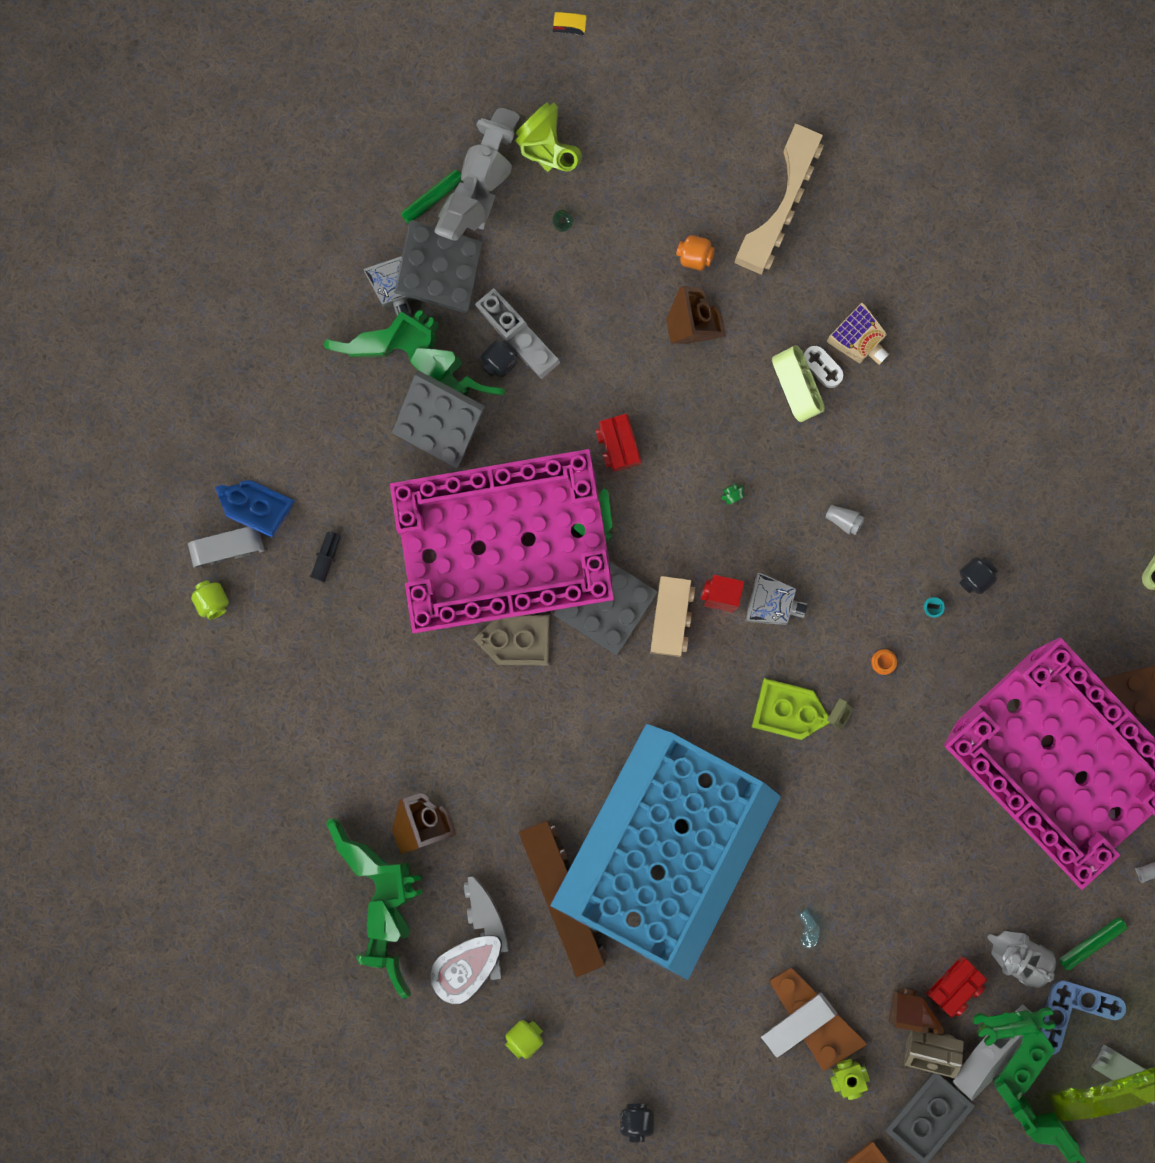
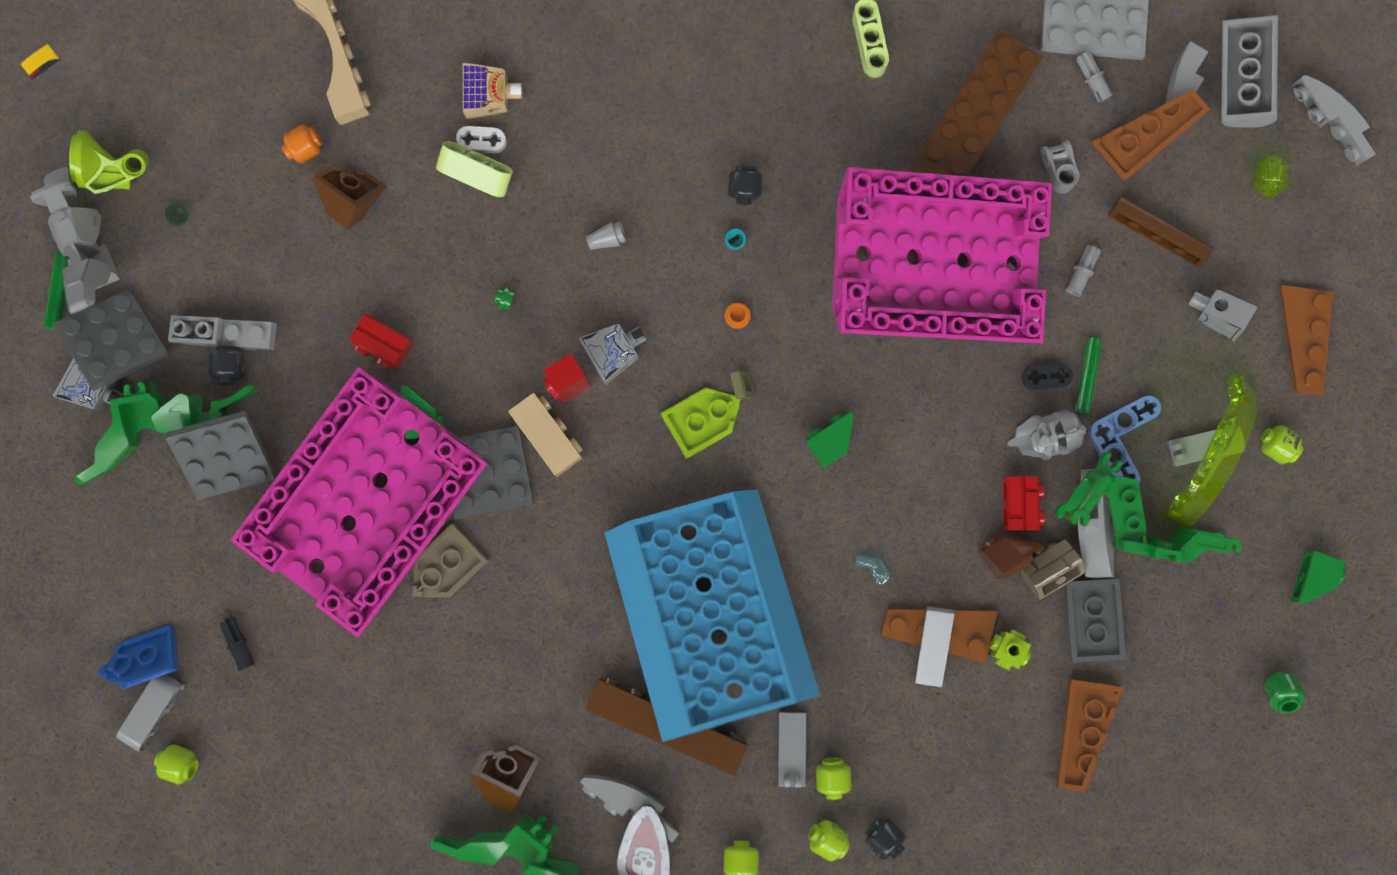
camera: 50 degrees left, 0 degrees up
(597, 1084) = (828, 840): none -> lime head
(631, 998) = (792, 750): none -> light grey hinge
(641, 1045) = (833, 778): none -> lime head
(864, 814) = (831, 442): none -> green slope
(1058, 920) = (1047, 370): none -> black beam

